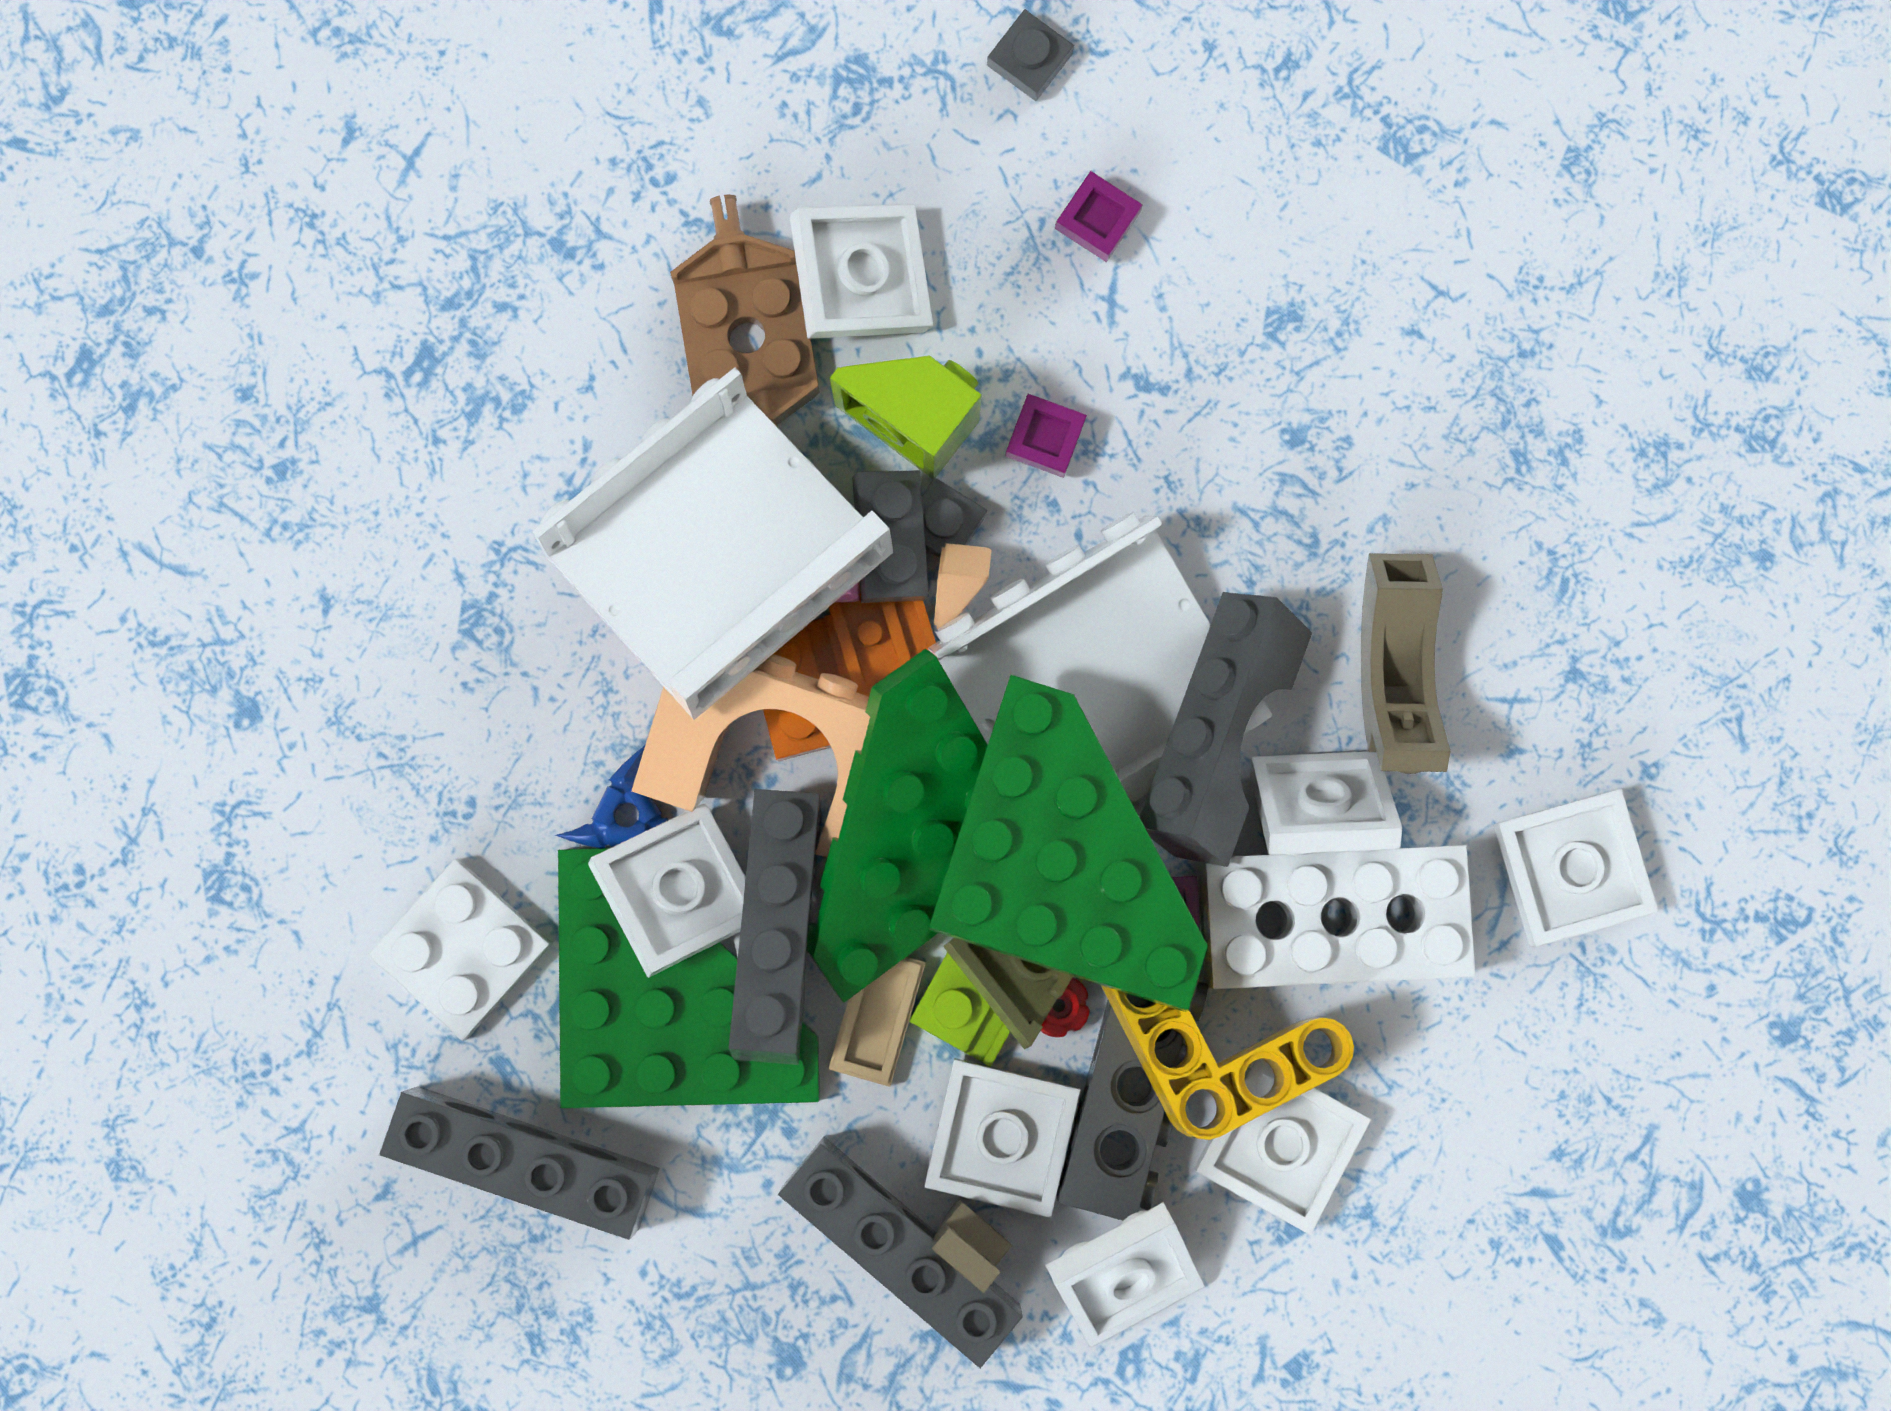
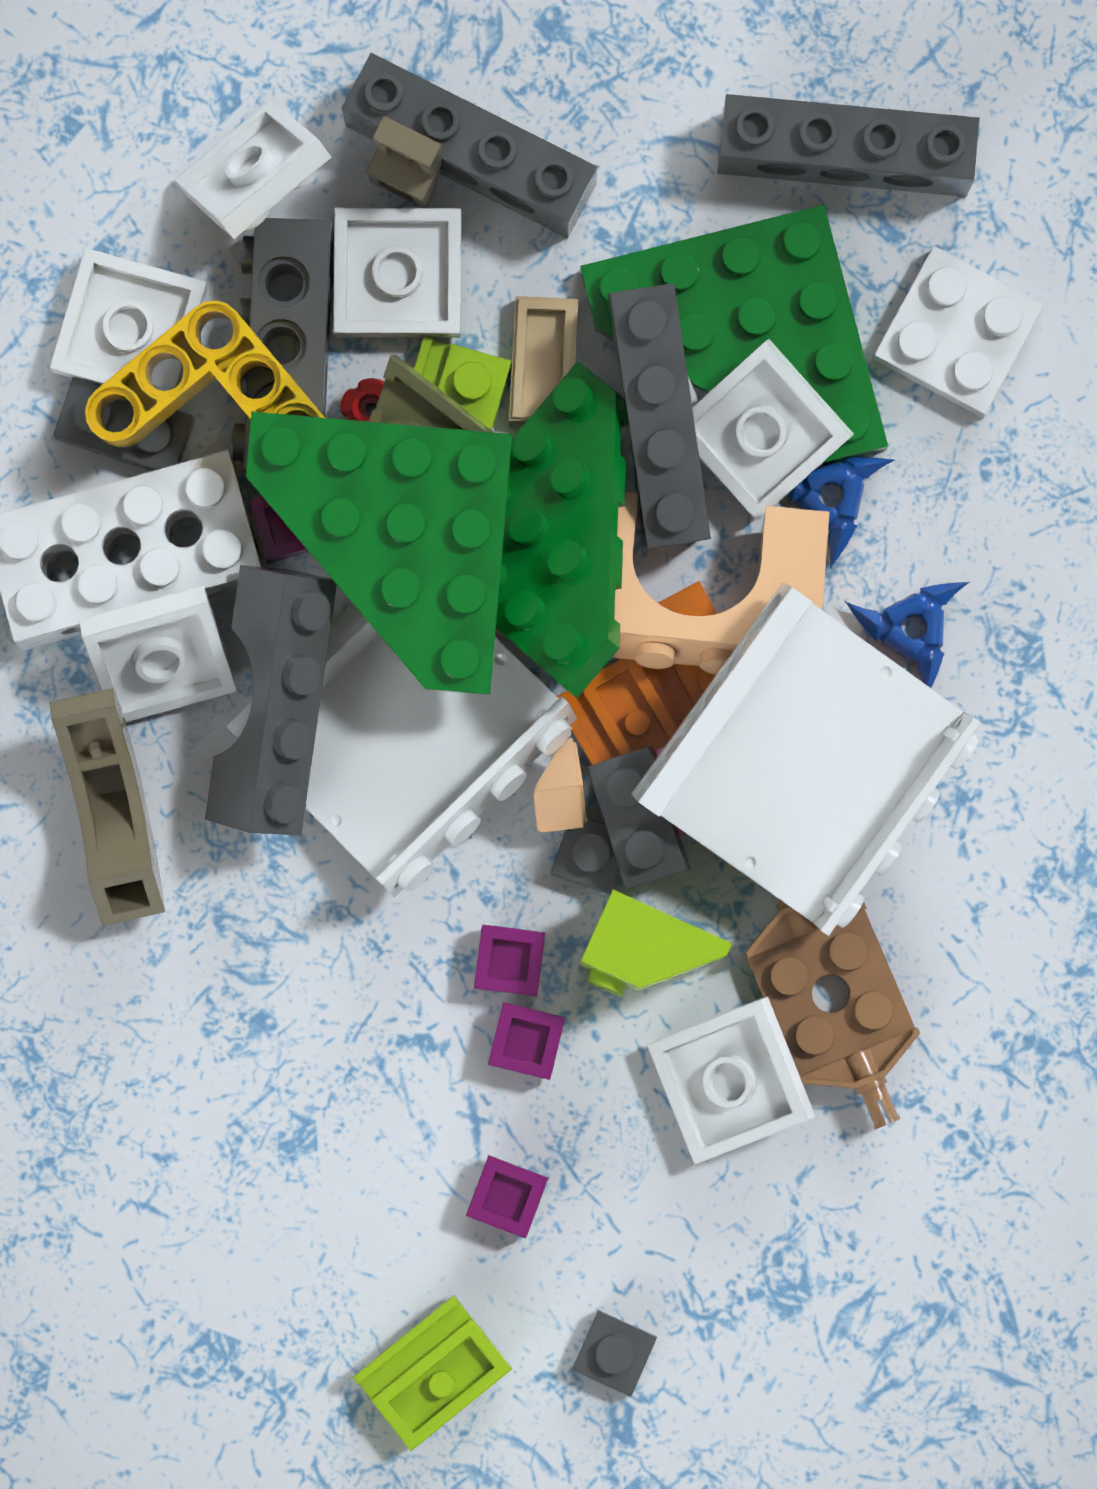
camera: 170 degrees right, 0 degrees up
(603, 672) = (923, 605): none -> blue piece
(1046, 356) = (526, 1041): none -> magenta plate
(1205, 72) = (432, 1372): none -> lime plate
(1277, 1011) = (156, 451): none -> dark grey plate

